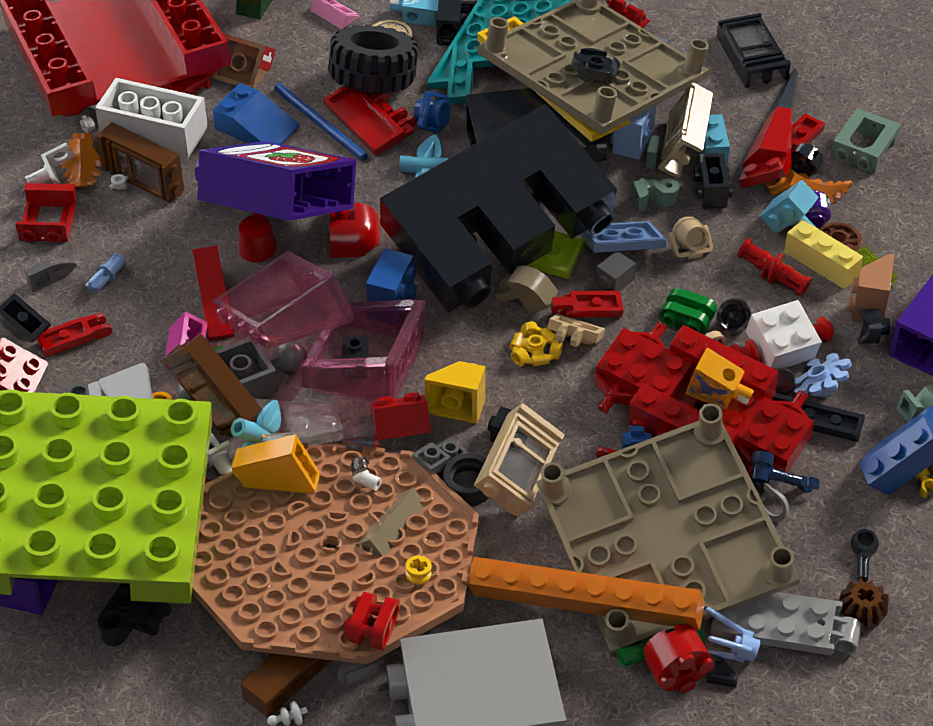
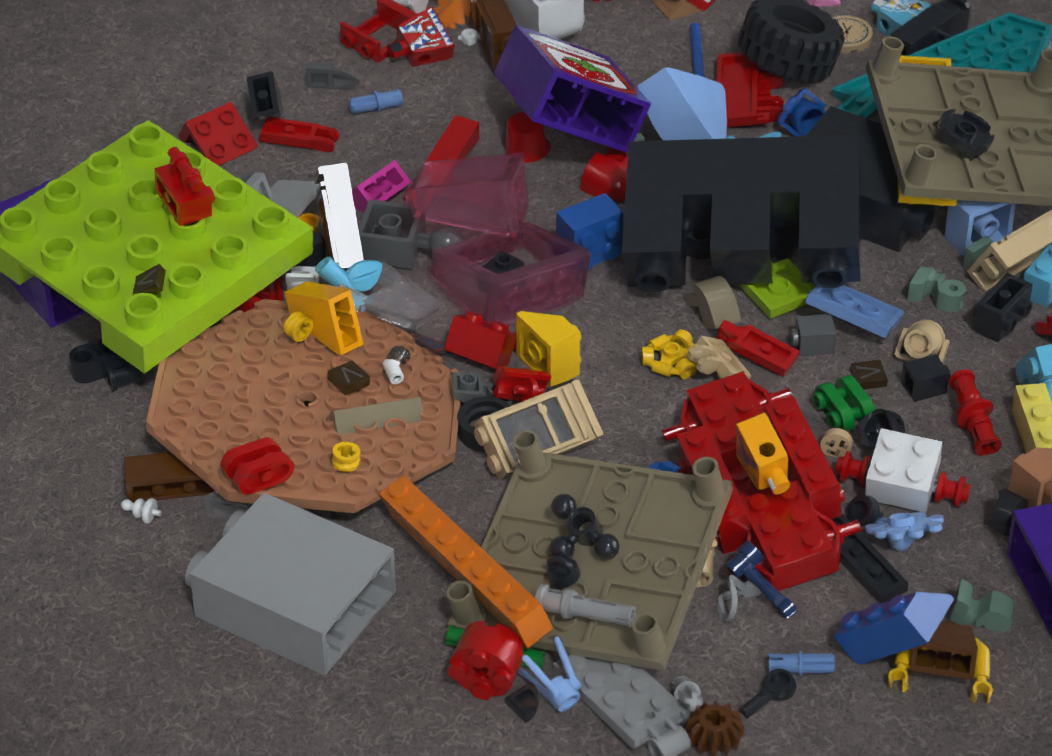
camera: 40 degrees right, 5 degrees down
(94, 203) = (422, 40): none -> red torso
(100, 430) = (183, 189): none -> red brick
(145, 524) = (150, 280): none -> dark brown tile
(252, 117) = (637, 40): blue slope -> none
(265, 489) = (298, 326): none -> yellow bush
(344, 506) = (348, 377): none -> dark brown tile
(376, 159) = (685, 105): none -> light blue piece
(467, 432) = (519, 383): none -> red hips
(645, 538) = (565, 507): none -> black piece
(663, 557) = (562, 571): none -> black tile
(674, 279) = (869, 374): none -> dark brown tile
(697, 577) = (570, 604): none -> light grey pin
(716, 261) = (925, 377): none -> black brick
(826, 589) = (687, 692): none -> light grey axle
(861, 518) = (802, 663): none -> medium blue axle

